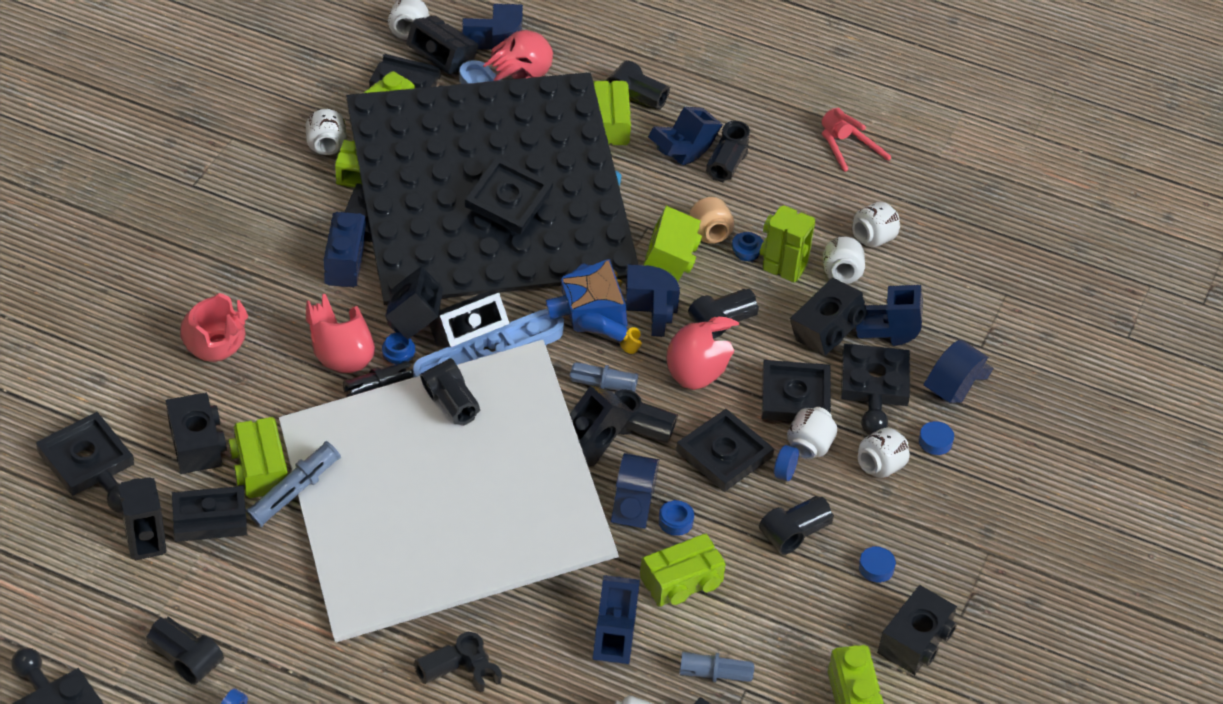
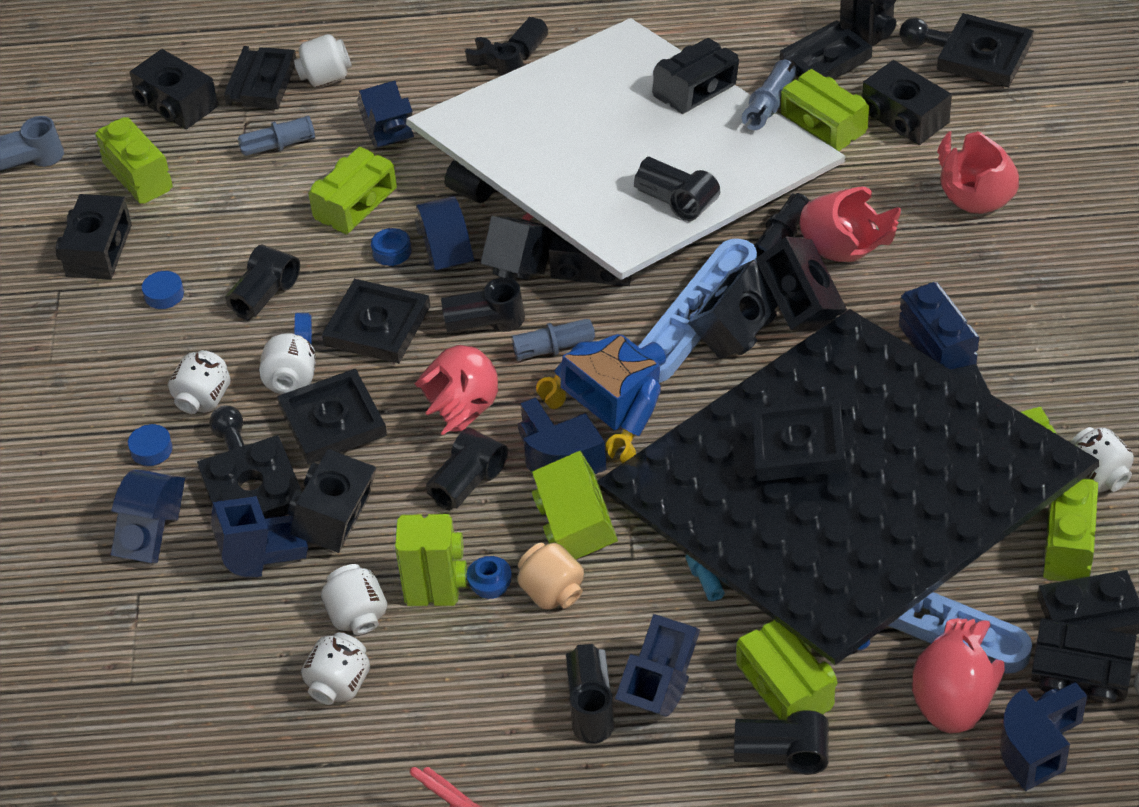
camera: 160 degrees right, 0 degrees up
(343, 514) = (695, 75): none -> black brick

